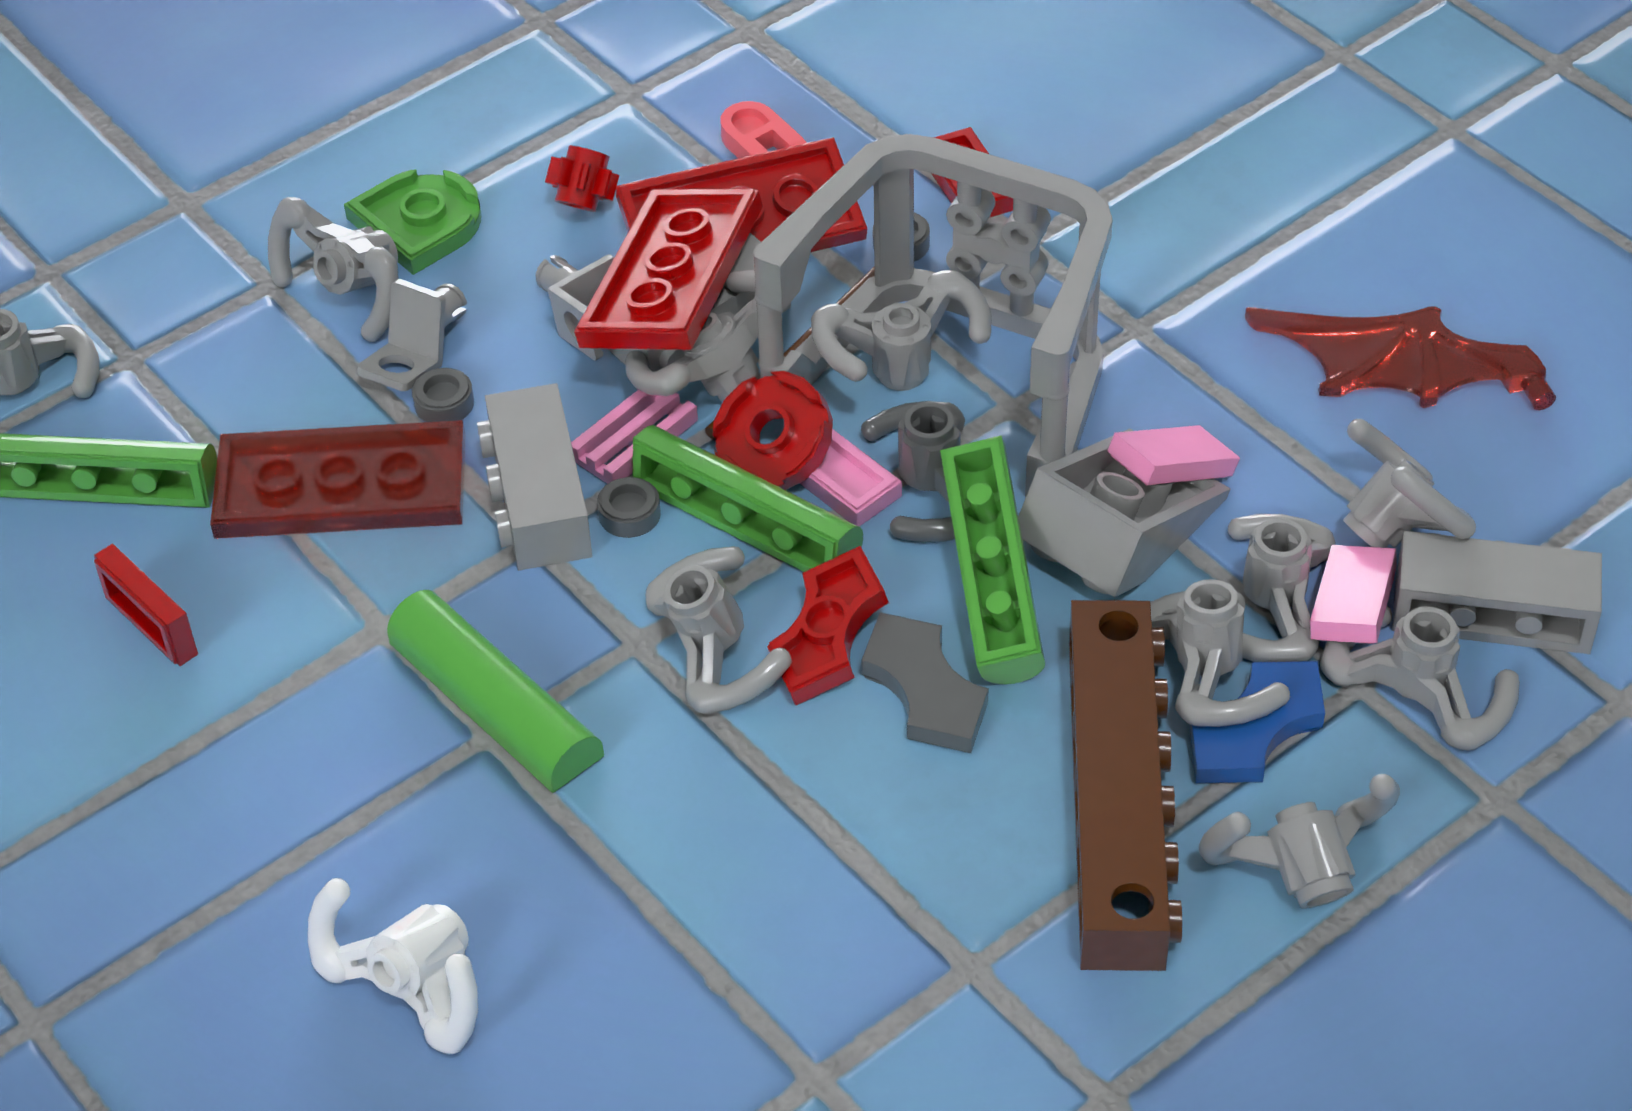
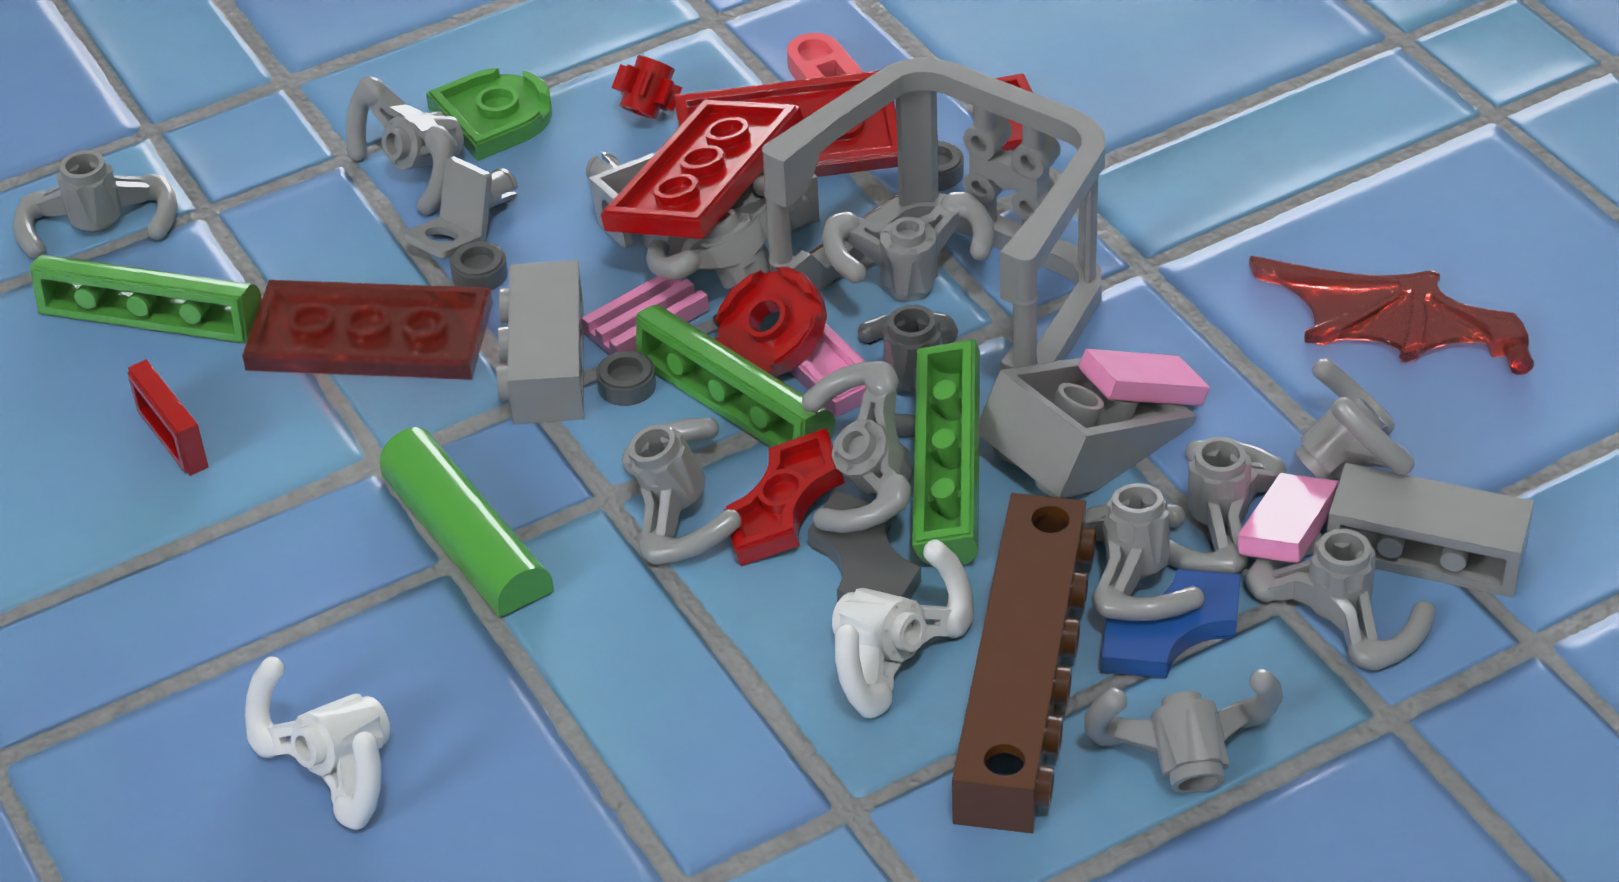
camera: 10 degrees right, 5 degrees down
(910, 566) = (867, 448): none -> light grey piece
(974, 764) = (884, 630): none -> white piece

